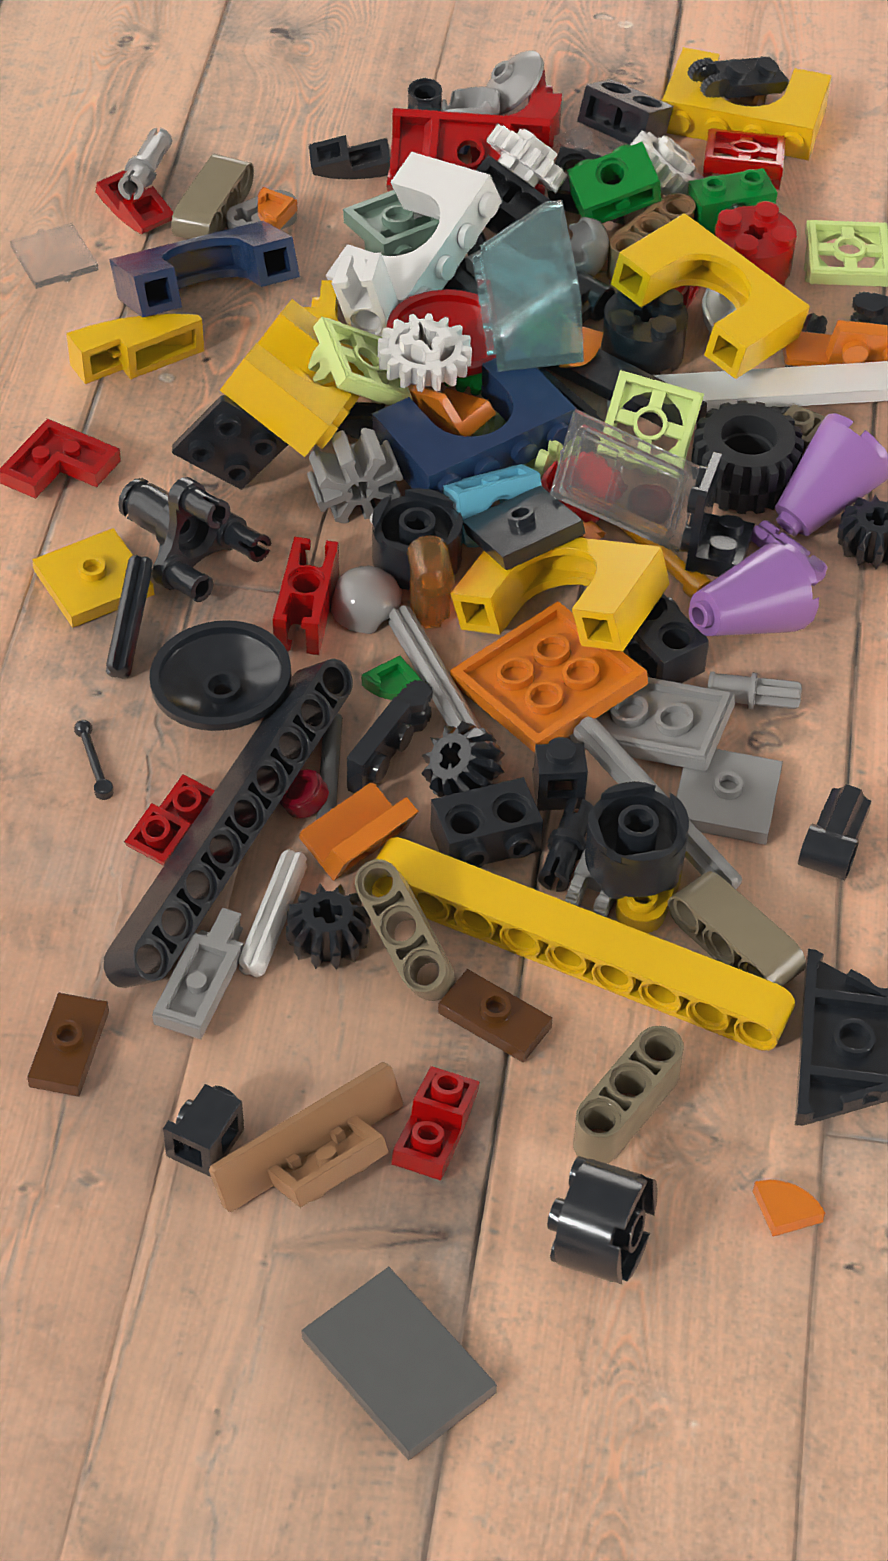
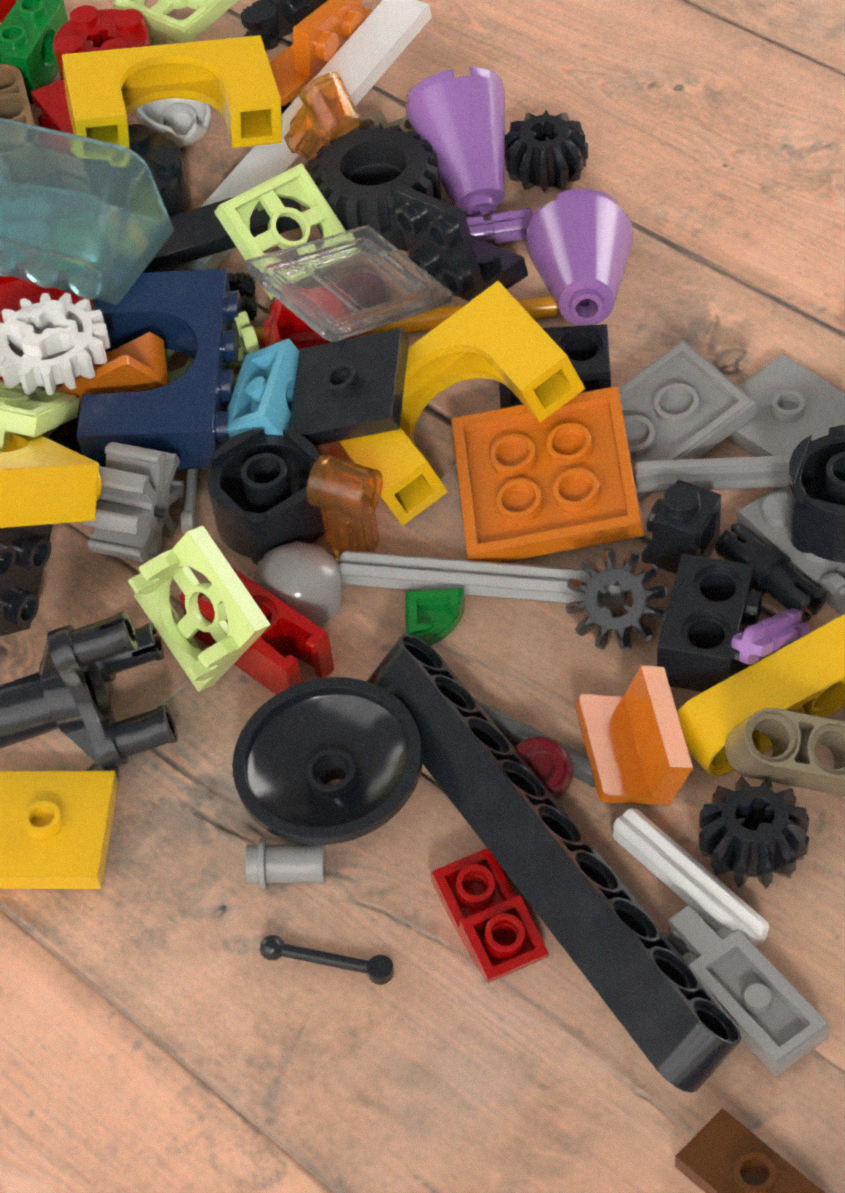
camera: 50 degrees left, 0 degrees up
(129, 617) = (150, 816): black axle -> none
(136, 693) = (284, 863): none -> light grey pin
(283, 547) = (226, 594): none -> yellowish green piece
(389, 733) = (520, 654): black hinge -> none
(493, 859) = (769, 635): none -> medium lavender axle
(758, 690) = (674, 328): light grey axle -> none
(763, 378) = (324, 116): none -> clear orange piece

